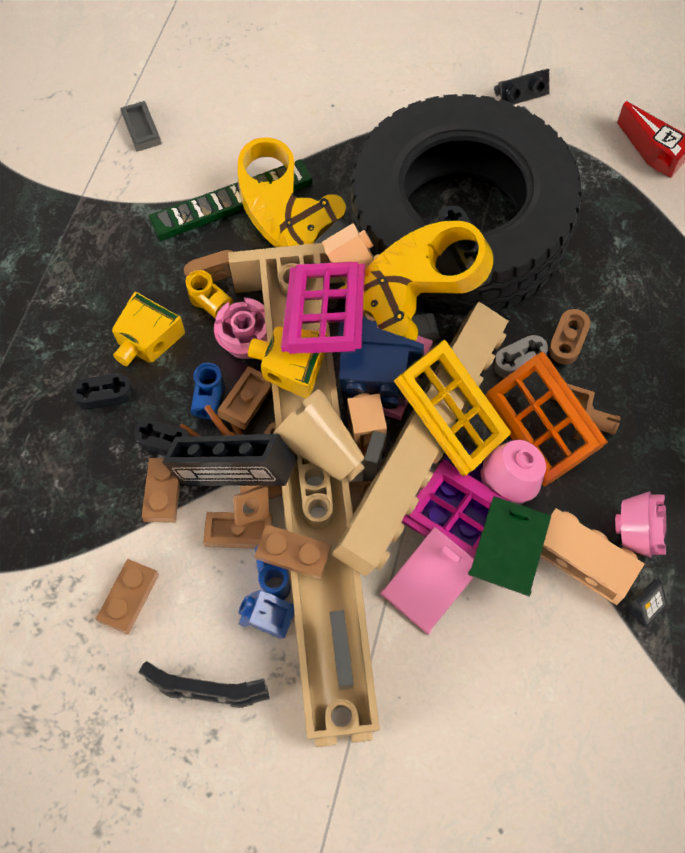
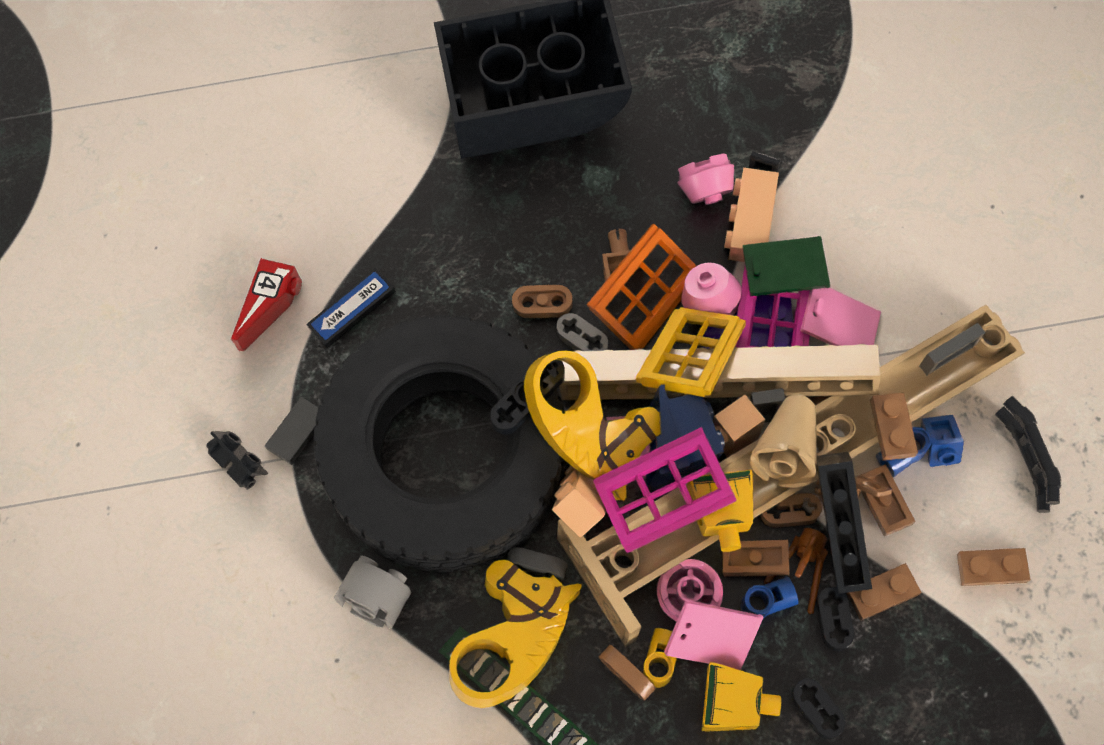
camera: 110 degrees left, 5 degrees up
(198, 327) = (713, 634): none -> bright pink container
(361, 117) = (373, 593): none -> light grey brick
(626, 200) = (351, 307): none -> tile

